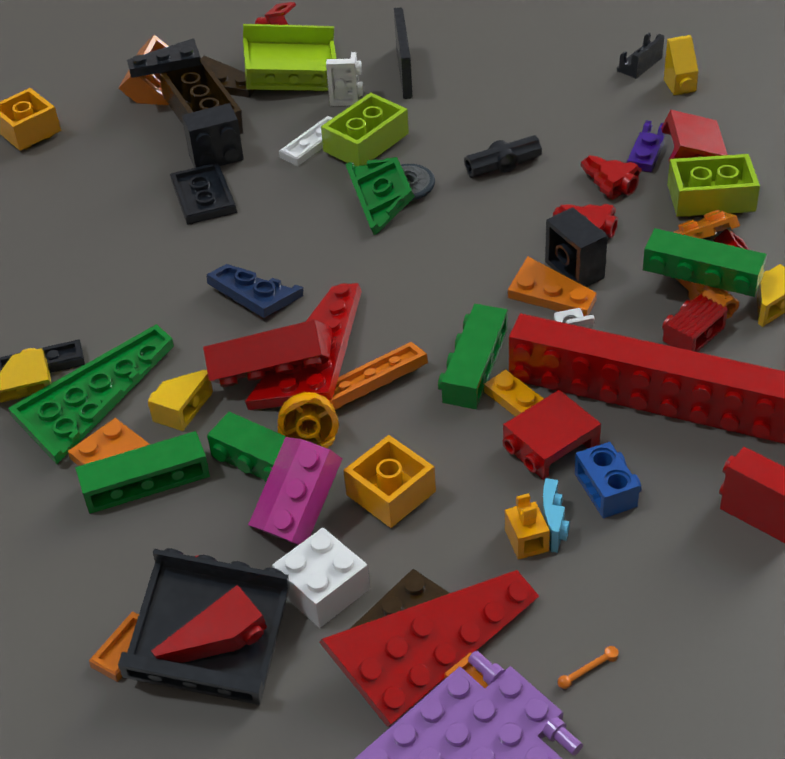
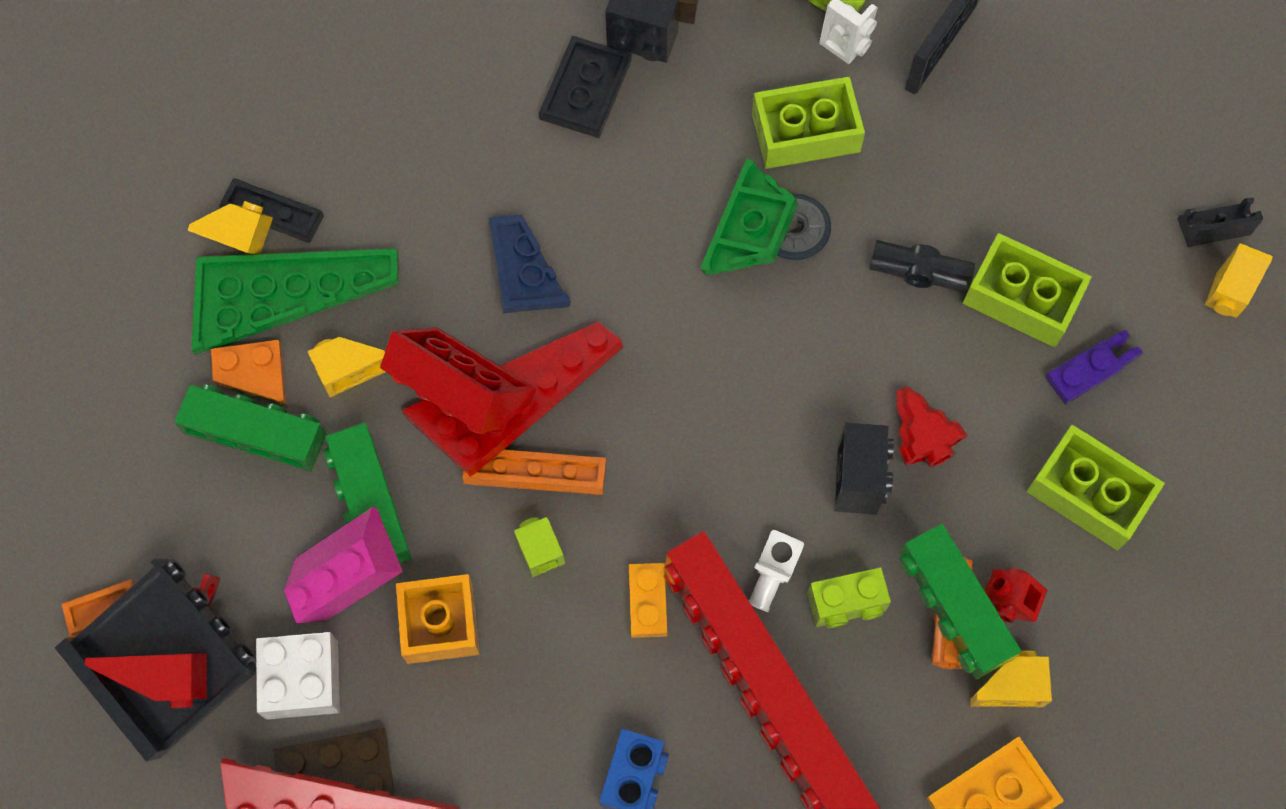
camera: 35 degrees right, 25 degrees up
(305, 145) = (738, 90): white tile -> none
(309, 418) = (427, 486): light orange cylinder -> none
(416, 408) = (539, 545): none -> lime brick
(473, 356) = (649, 523): green brick -> none
(526, 528) = (512, 769): light orange brick -> none
(549, 289) = (804, 490): orange wing -> none
(549, 432) = (630, 678): red panel -> none
(554, 514) = (540, 785): medium azure slope -> none
(575, 129) = (1027, 290): none -> lime brick
(612, 176) = (1009, 383): red rock -> none
(637, 311) = (848, 598): none -> lime brick
(693, 135) = (1138, 409): red panel -> none
(694, 323) = (894, 655): red brick -> none
(709, 225) = (1021, 546): orange wing -> none

